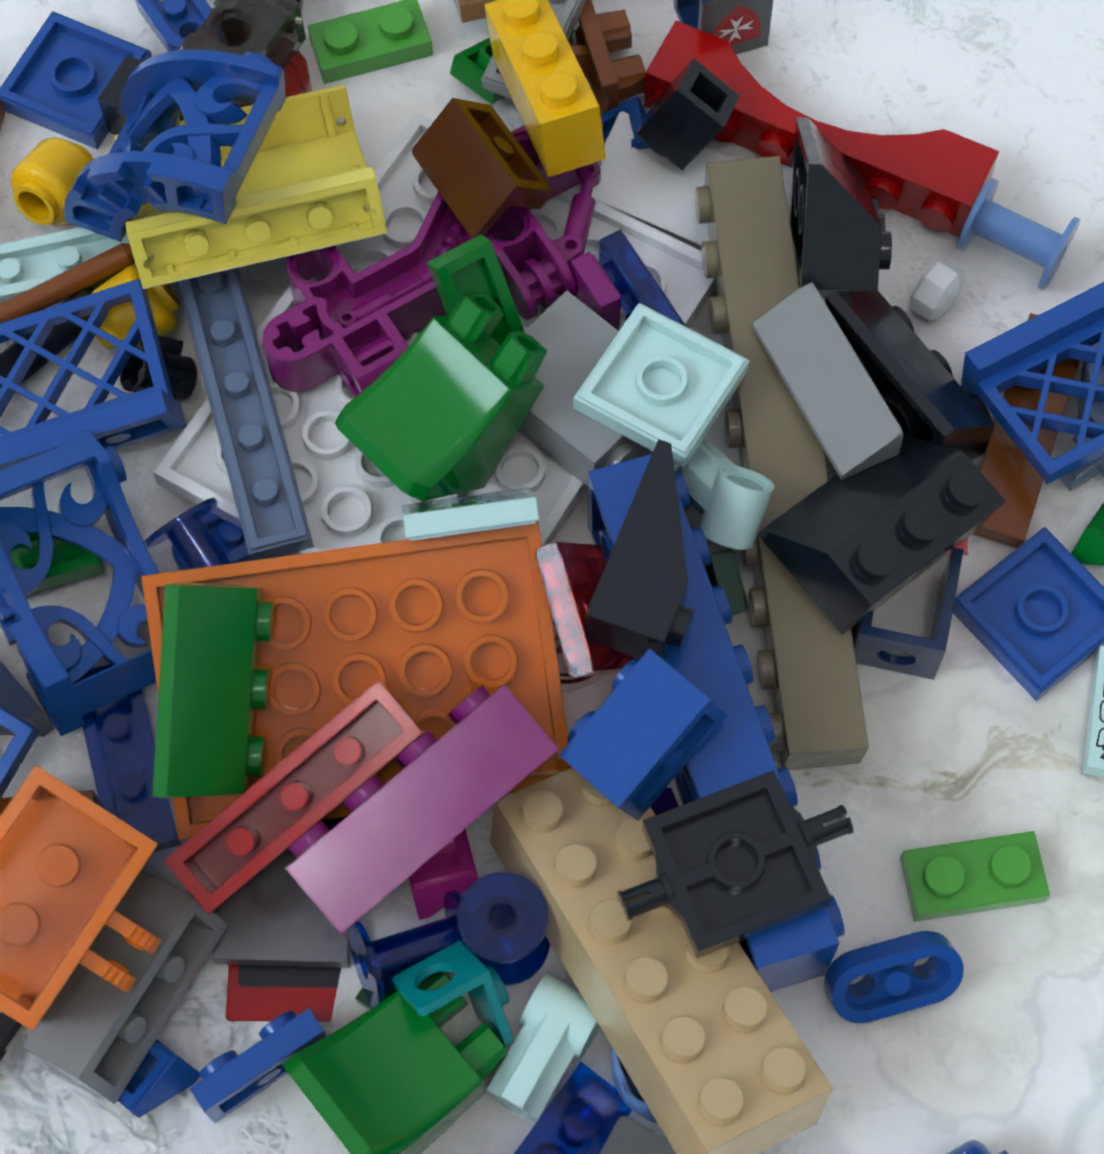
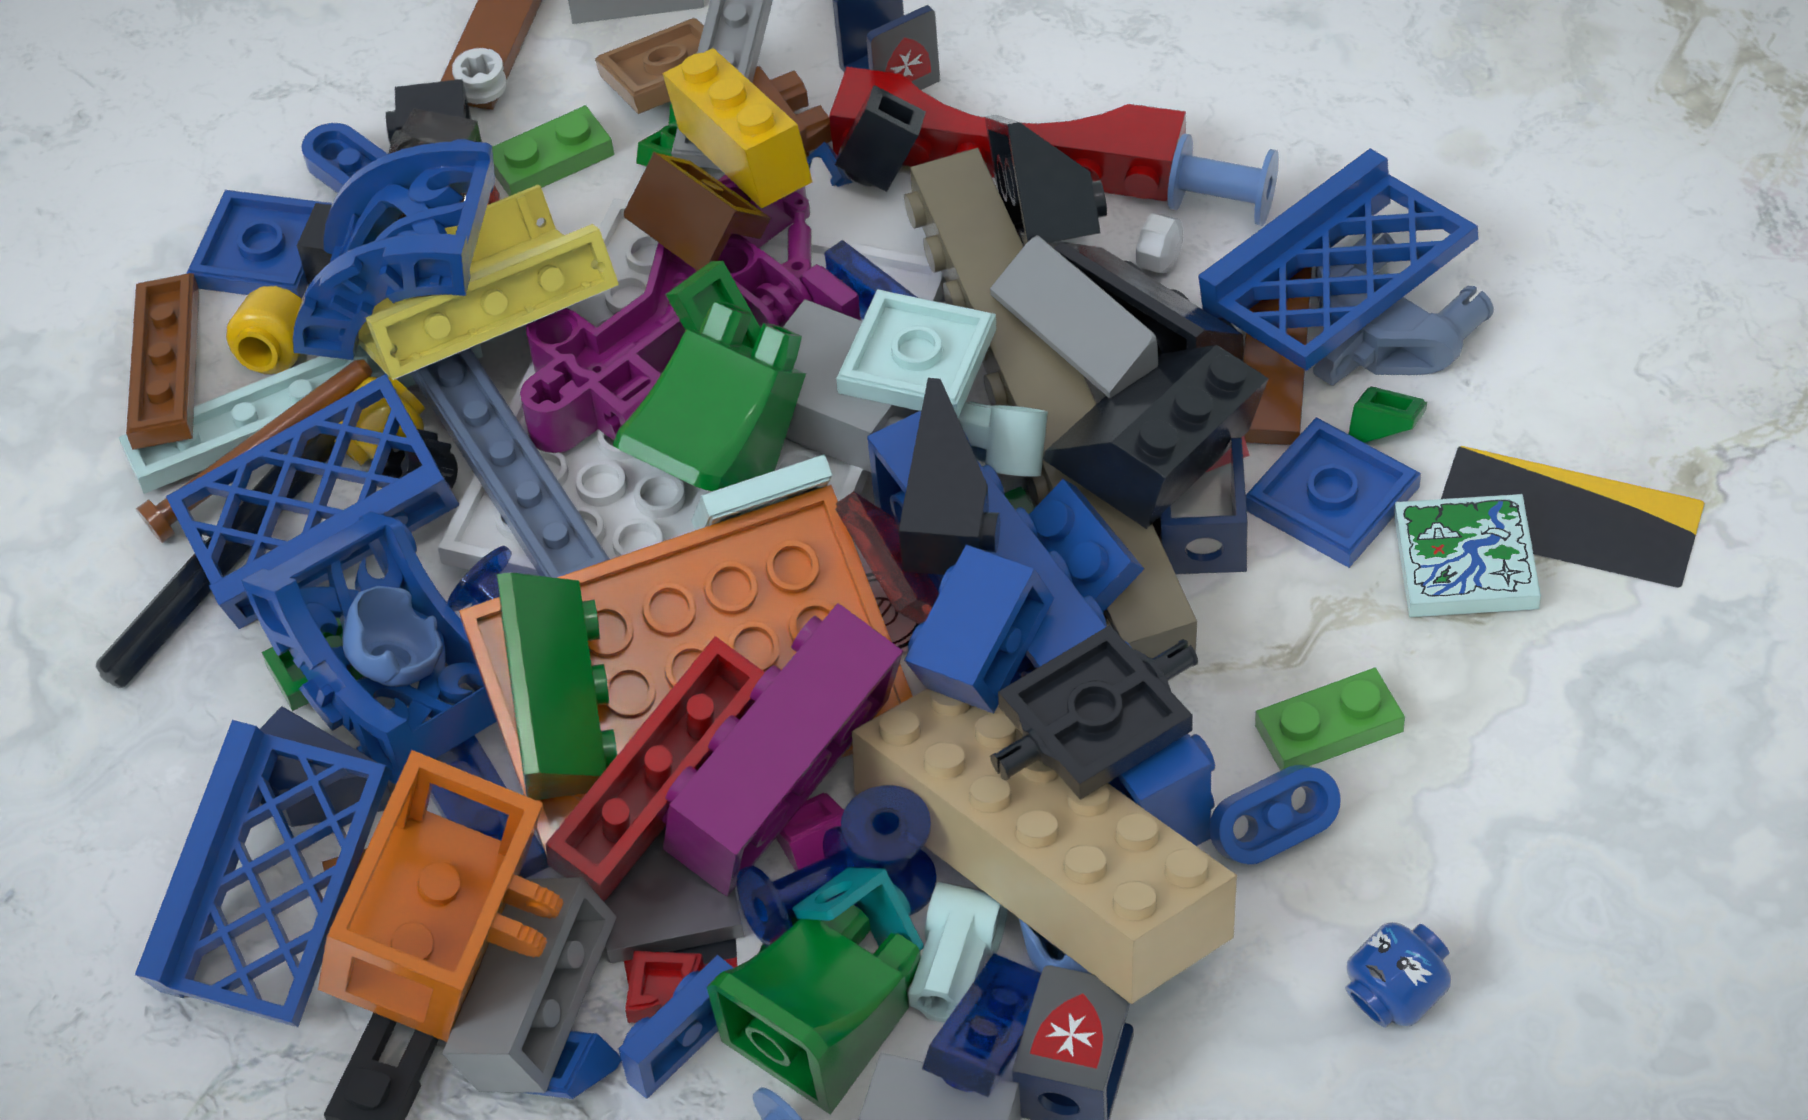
camera: 10 degrees left, 15 degrees down
(76, 576) = (388, 638): none -> medium blue hair
(253, 1003) = (655, 980): none -> red tile
(775, 639) = (1090, 548): none -> blue plate

